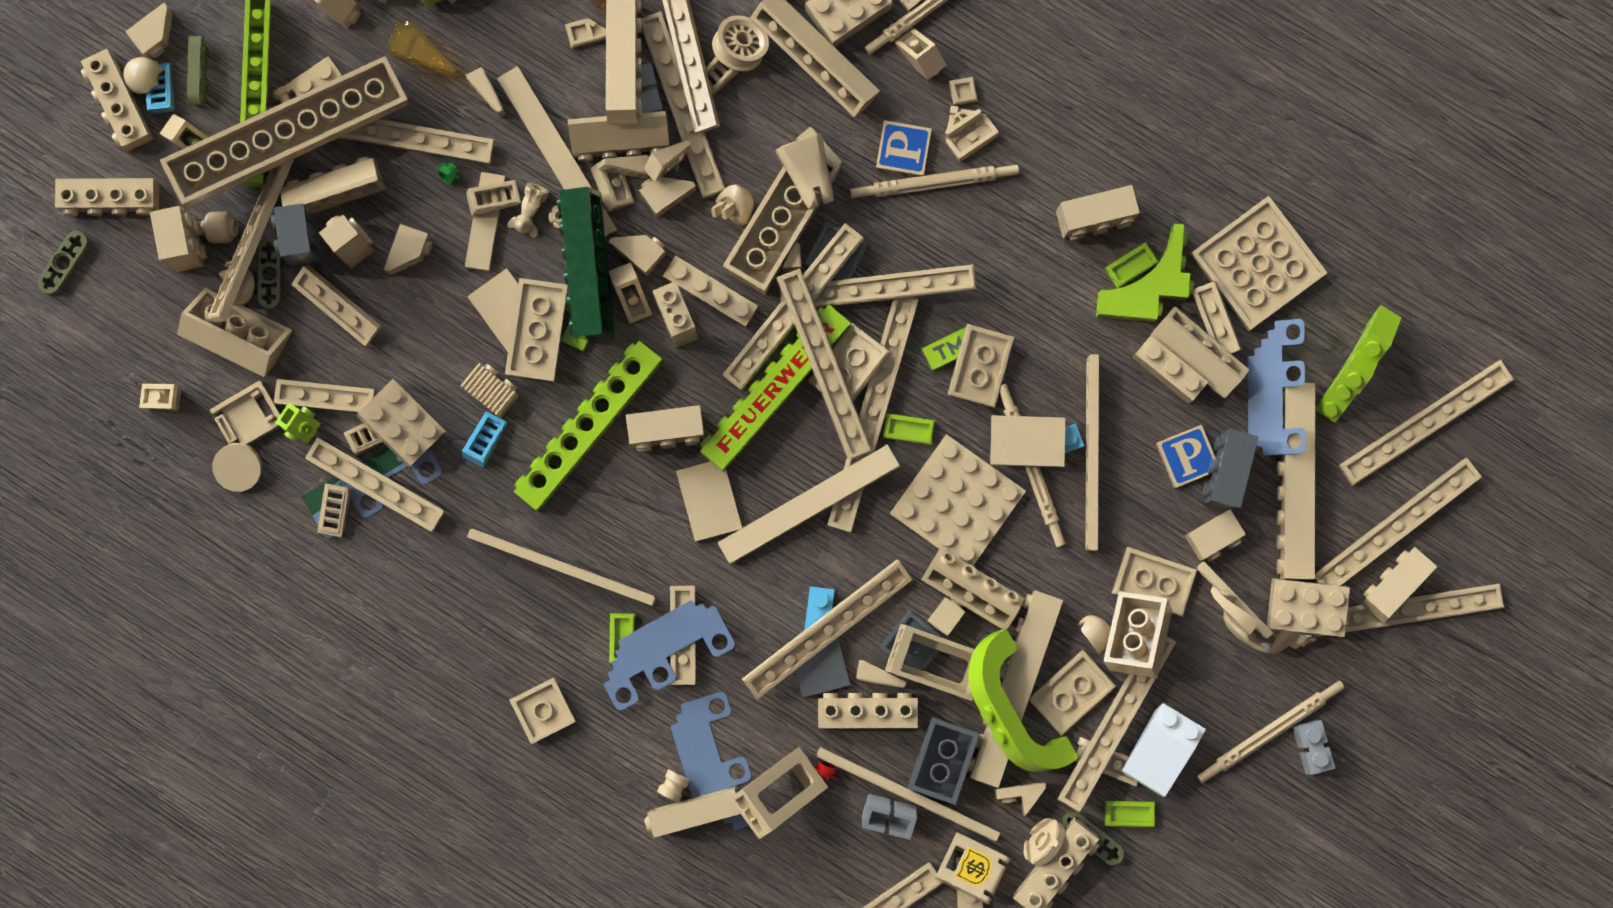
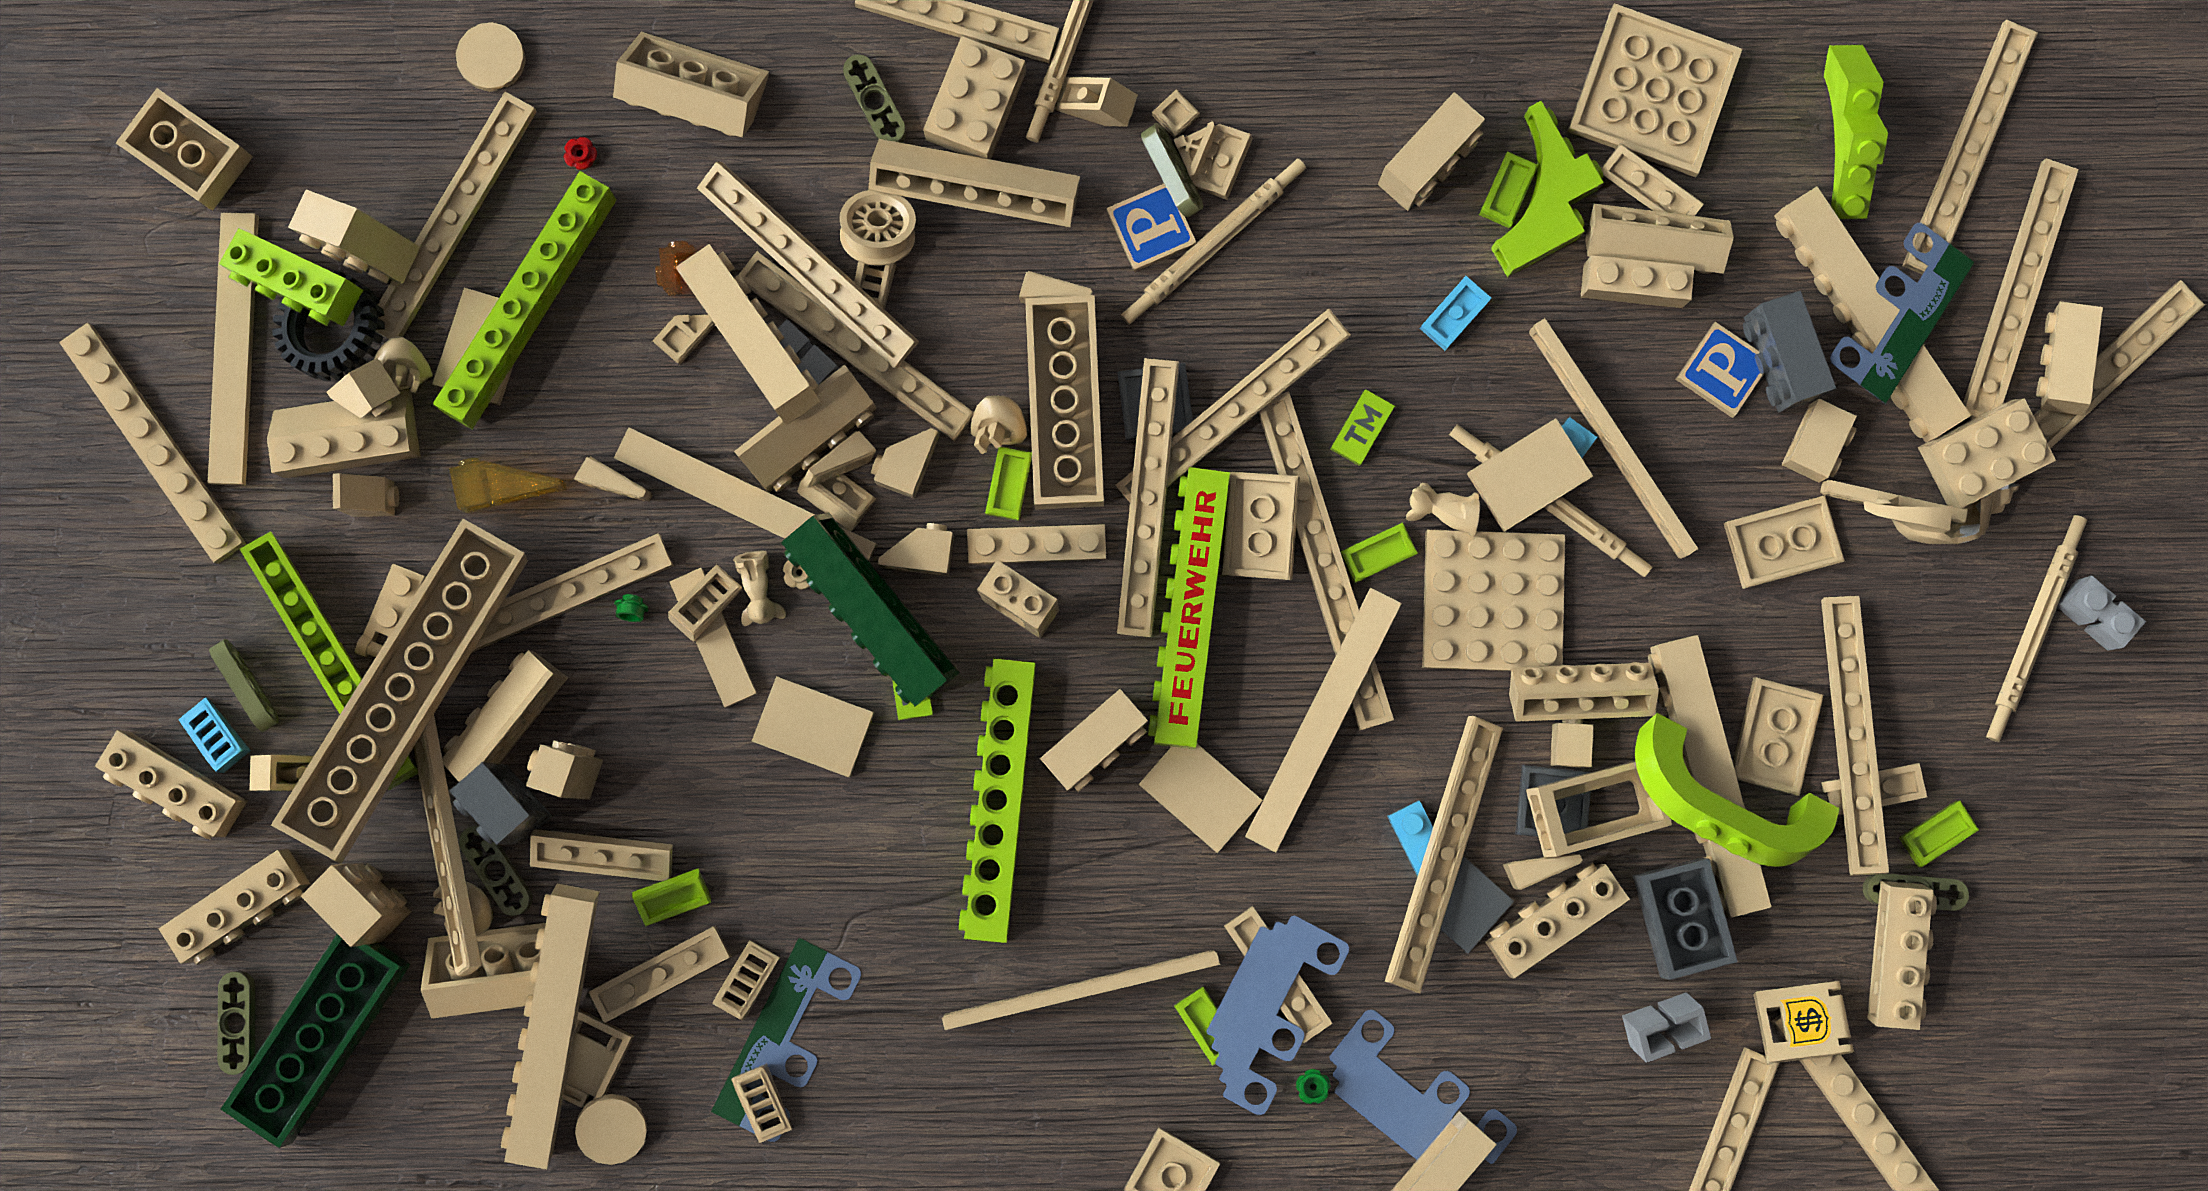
camera: 30 degrees left, 0 degrees up
(103, 301) = (314, 1039): none -> dark green brick
(141, 75) = (180, 734): tan hair -> none
(152, 32) = (160, 673): tan slope -> none
(160, 397) = (462, 1107): tan slope -> none
(219, 227) = (397, 855): tan head -> none
(242, 382) = (551, 1025): none -> tan brick
(298, 423) = (650, 1028): lime brick -> none
(361, 356) = (671, 897): none -> lime tile
(375, 484) = (791, 1040): tan plate -> none
(400, 423) = (774, 946): tan brick -> none
(407, 249) = (642, 731): tan slope -> none
(475, 458) = (891, 927): medium azure slope -> none
(490, 390) = (853, 834): tan brick -> none
(536, 330) = (862, 726): tan plate -> none
(630, 293) = (943, 608): tan slope -> none
(653, 715) = (1322, 1086): none -> green plate
(665, 159) = (880, 423): tan slope -> none
(673, 785) = (1387, 1161): tan wheel -> none
(717, 245) = (1008, 483): none -> lime tile
(755, 812) = (1492, 1120): tan piece -> none
(793, 260) = (1111, 440): tan slope -> none
(808, 168) = (1061, 323): tan piece -> none
(824, 364) = (1232, 542): tan tile -> none
(826, 770) = (1554, 1022): red plate -> none
(908, 794) = (1663, 986): tan tile -> none
(937, 123) = (1172, 170): none -> beam
(968, 431) = (1453, 510): none -> tan animal
(981, 365) = (1413, 422): tan tile -> none
(1028, 794) = (1805, 889): tan slope -> none
(1044, 842) = (1868, 935): tan tile -> none
(1049, 317) = (1455, 313): none -> medium azure plate
(1096, 631) = (1761, 645): tan hair -> none
(1138, 634) = (1813, 617): tan brick -> none
(1163, 749) = (1931, 732): white slope -> none
(1265, 390) = (1764, 232): sand blue piece -> none
(1323, 499) = (1919, 312): none -> piece

